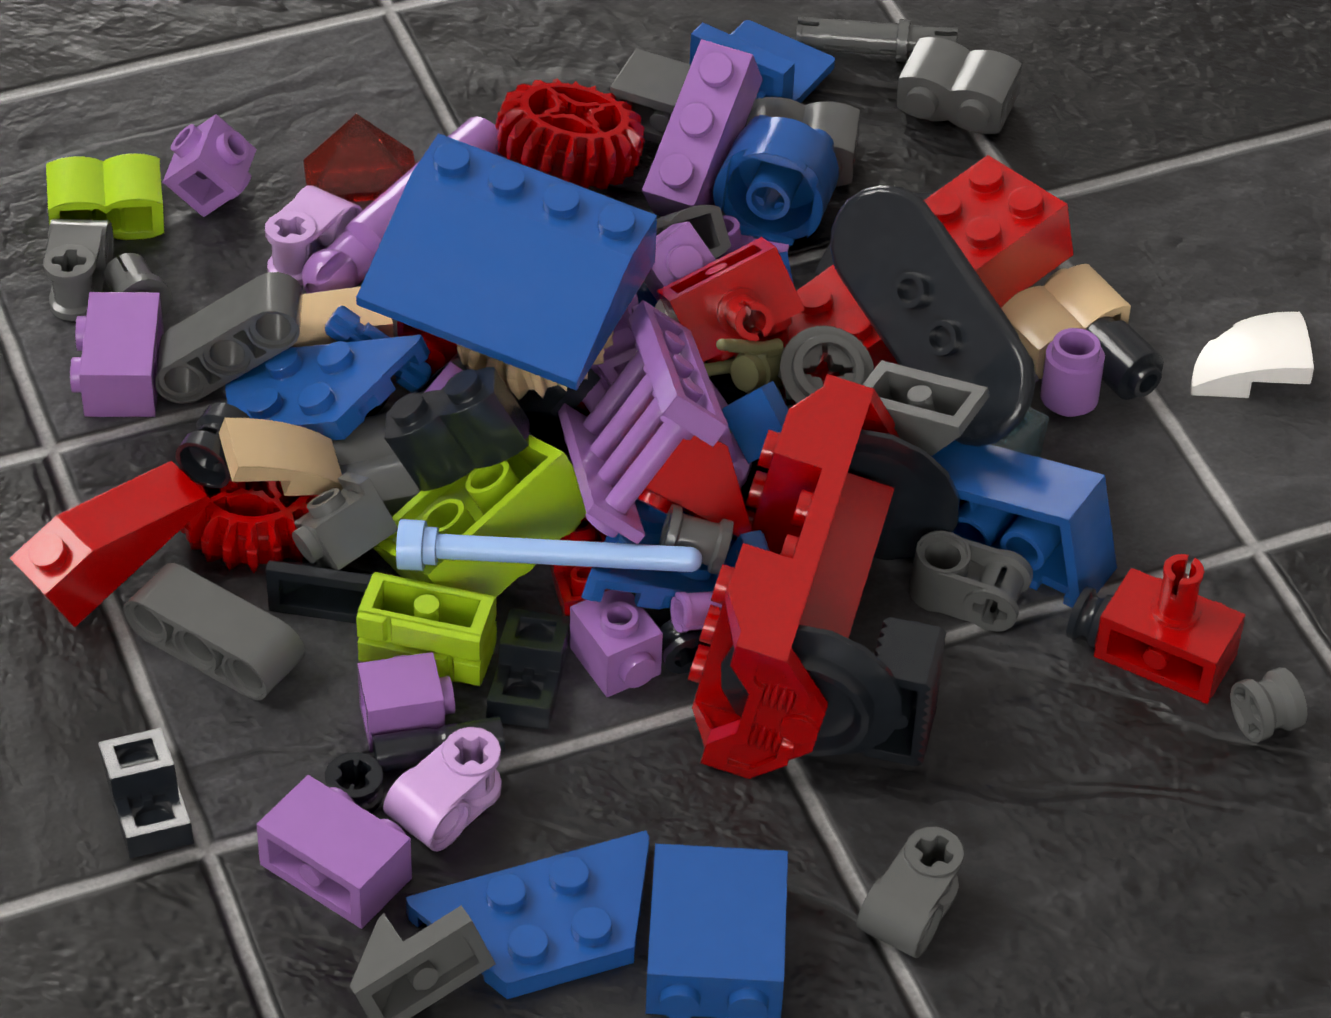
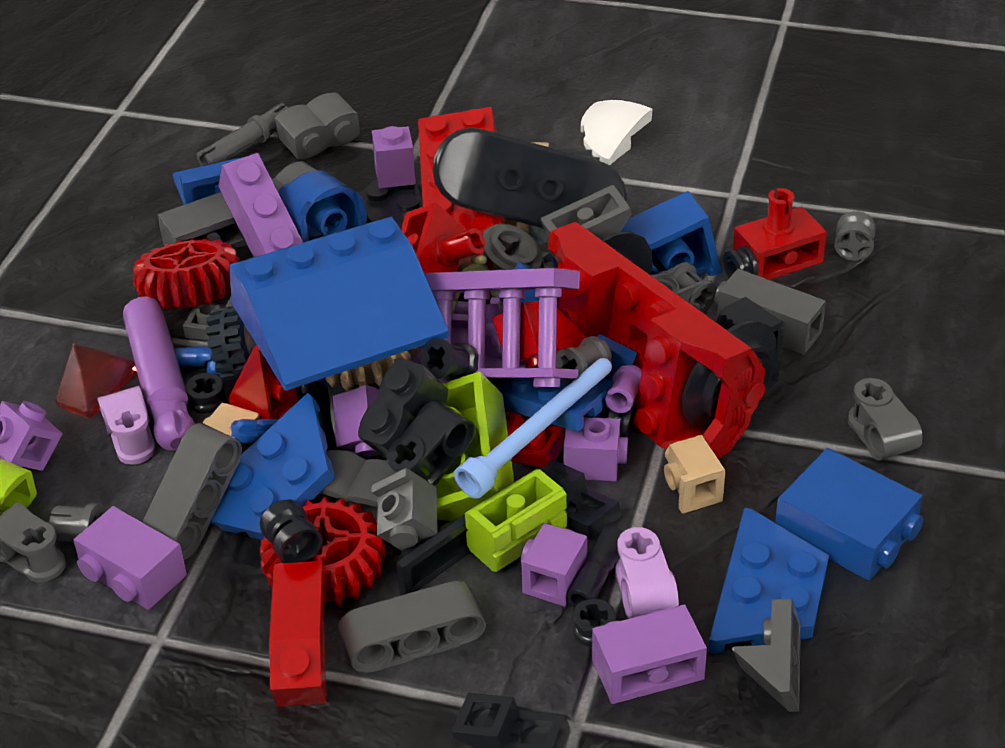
camera: 50 degrees left, 5 degrees down
(282, 453) = (334, 506): tan slope -> none
(436, 480) = (432, 441): none -> black piece
(556, 416) = (449, 360): none -> black bush
(655, 754) = (694, 473): none -> tan brick
(930, 164) = (393, 157): none -> medium lavender brick
(1025, 689) = (799, 311): none -> dark grey brick

